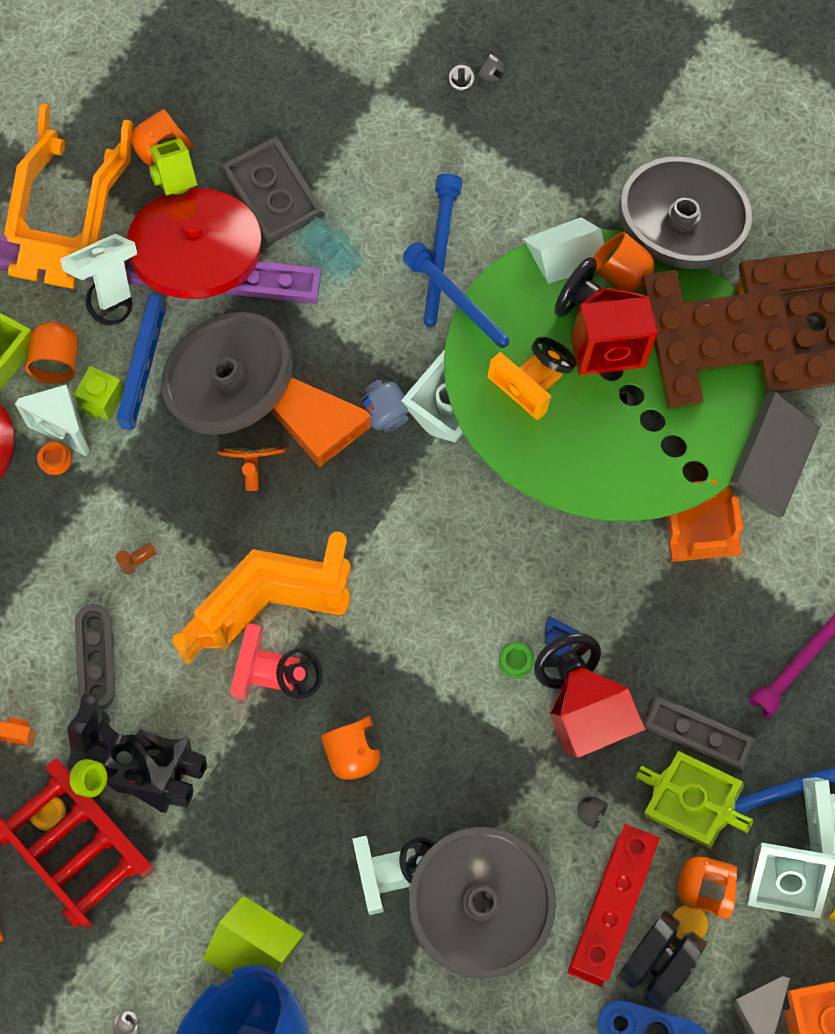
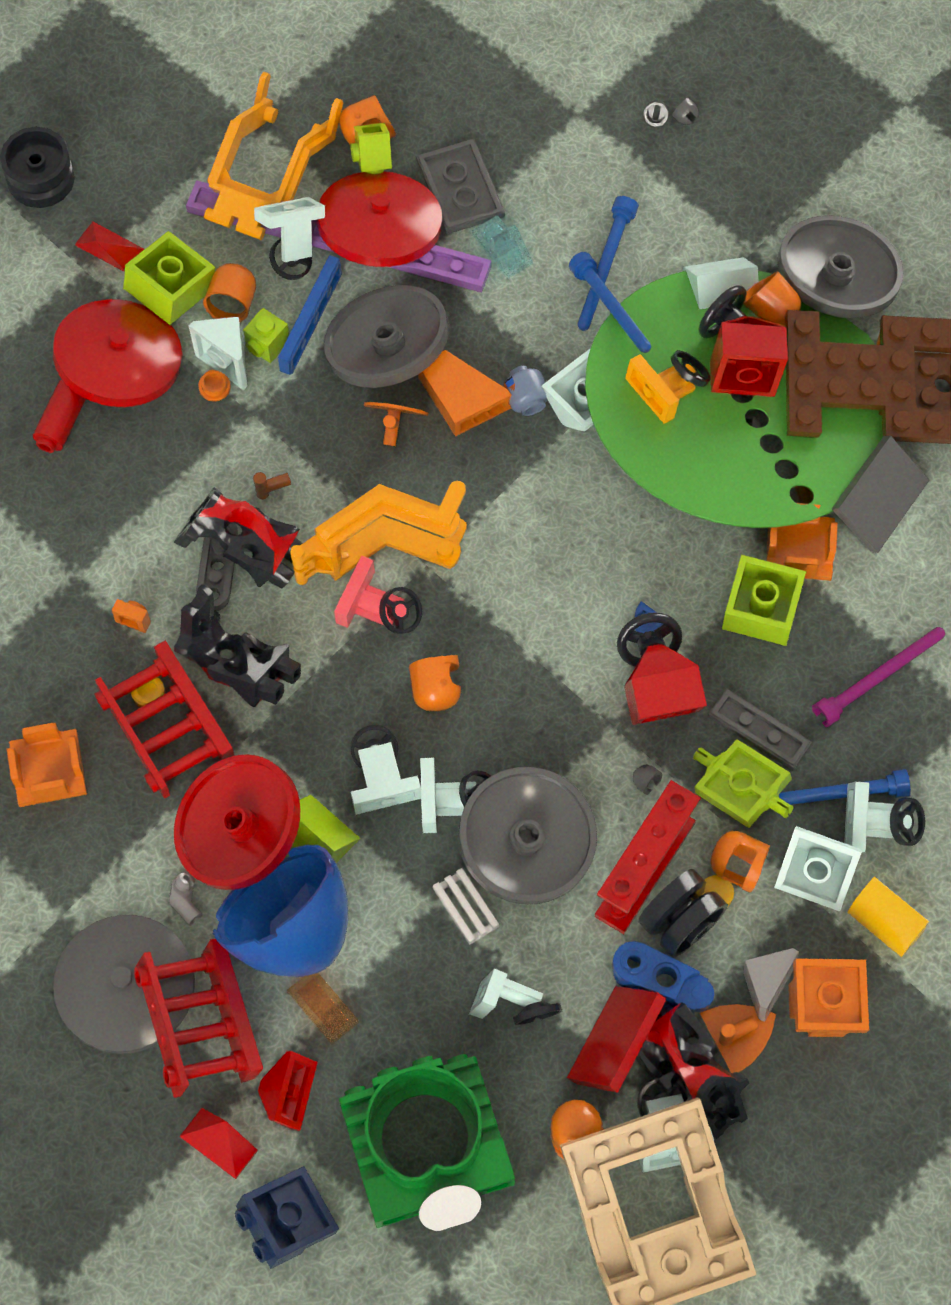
camera: 10 degrees right, 5 degrees down
(88, 778) = (191, 660): lime tile -> none
(136, 619) = (261, 535): none -> black hips
(171, 948) = (237, 822): none -> red dish
(312, 859) = (381, 774): none -> light aqua piece
(409, 965) = (450, 882): none -> white tile
(516, 660) = (602, 635): bright green tile -> none
(677, 593) = (763, 600): none -> lime brick

